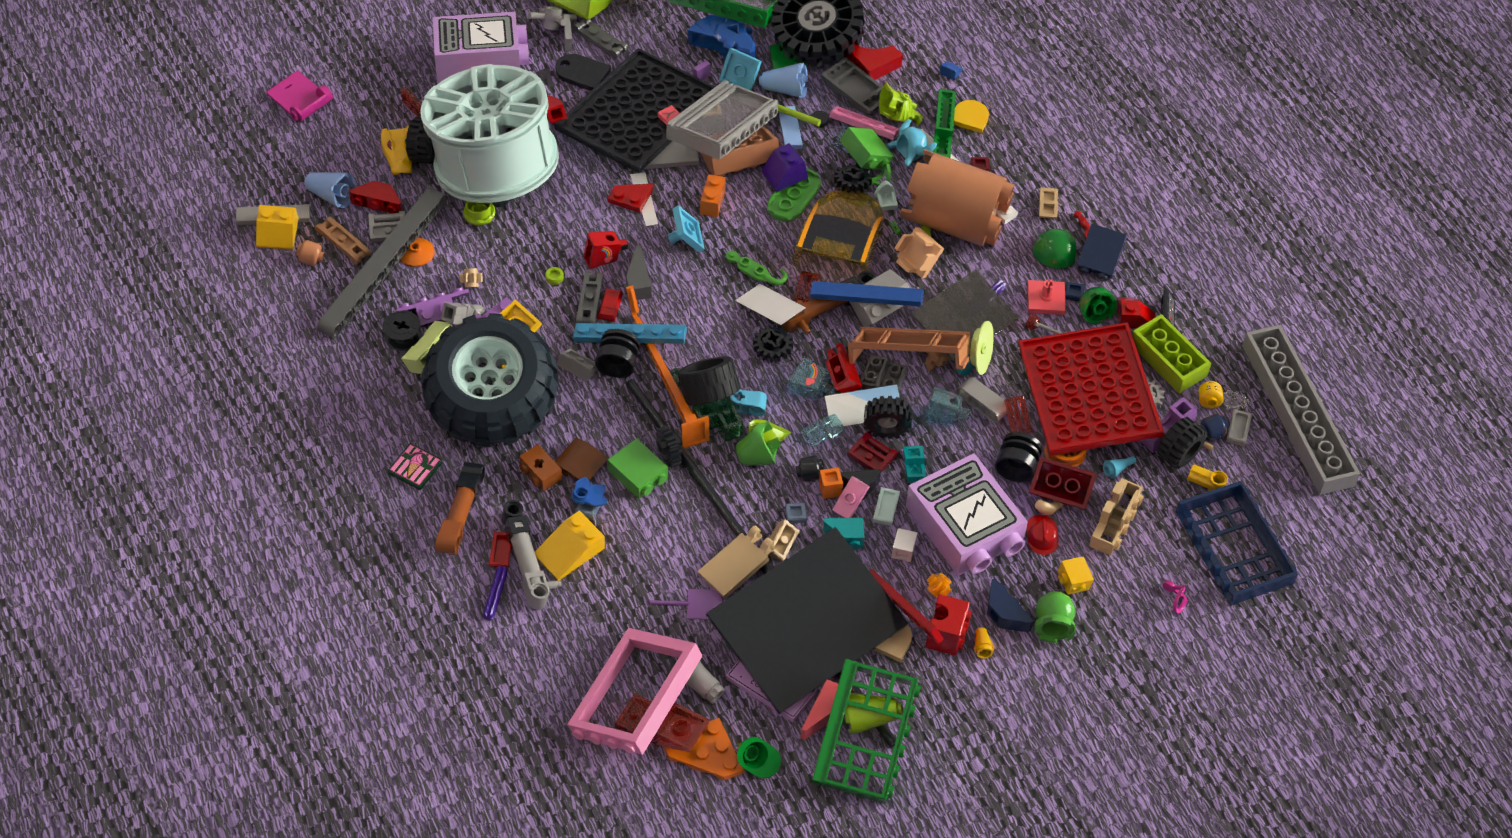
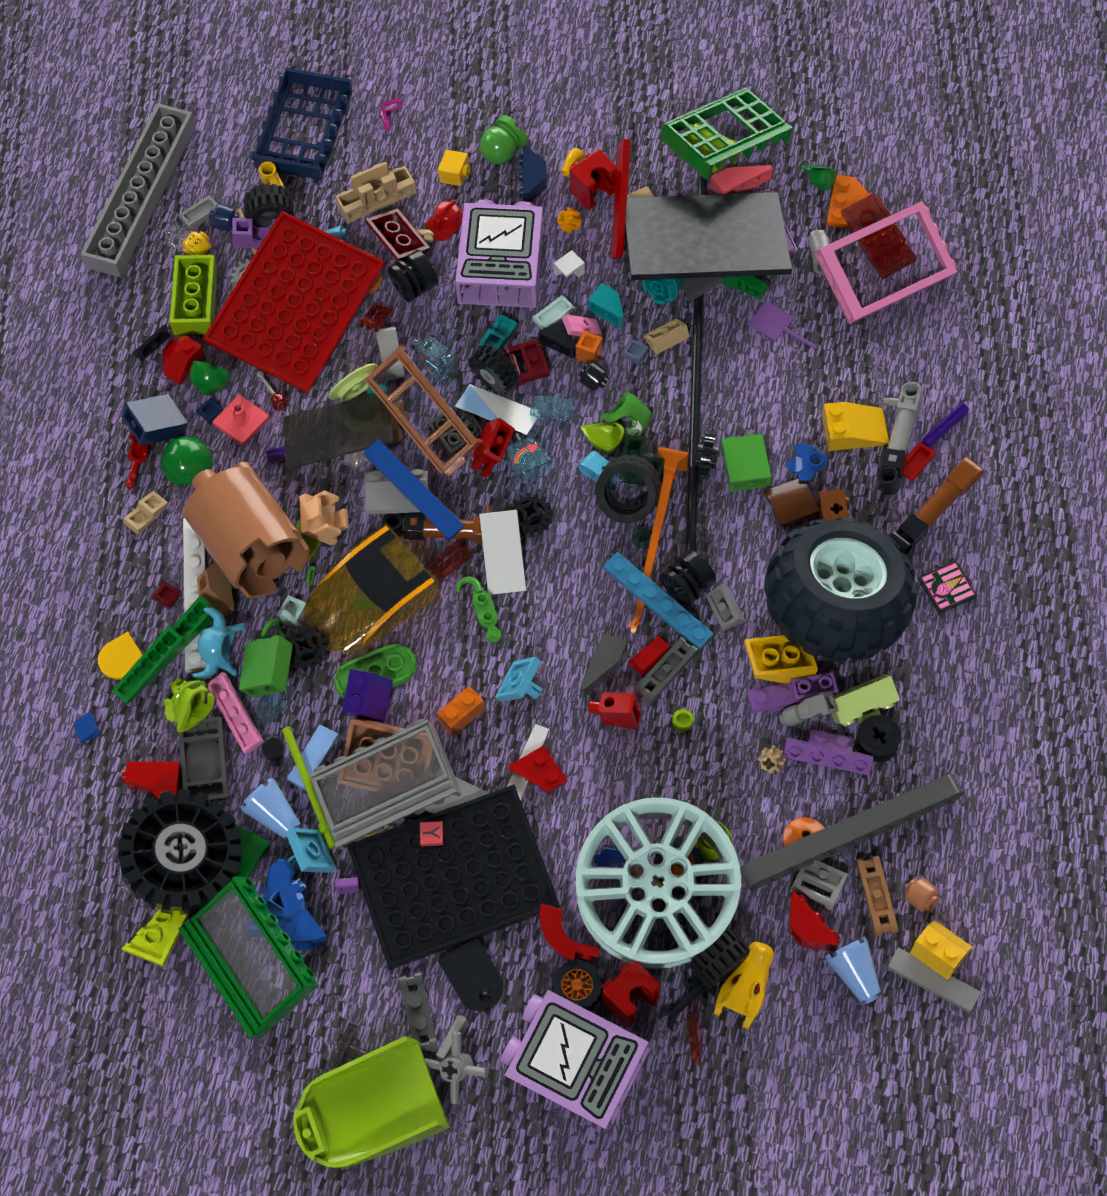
camera: 140 degrees left, 10 degrees up
(300, 96) = (815, 1137): dark pink door -> none
(737, 562) = (721, 329): tan tile -> none

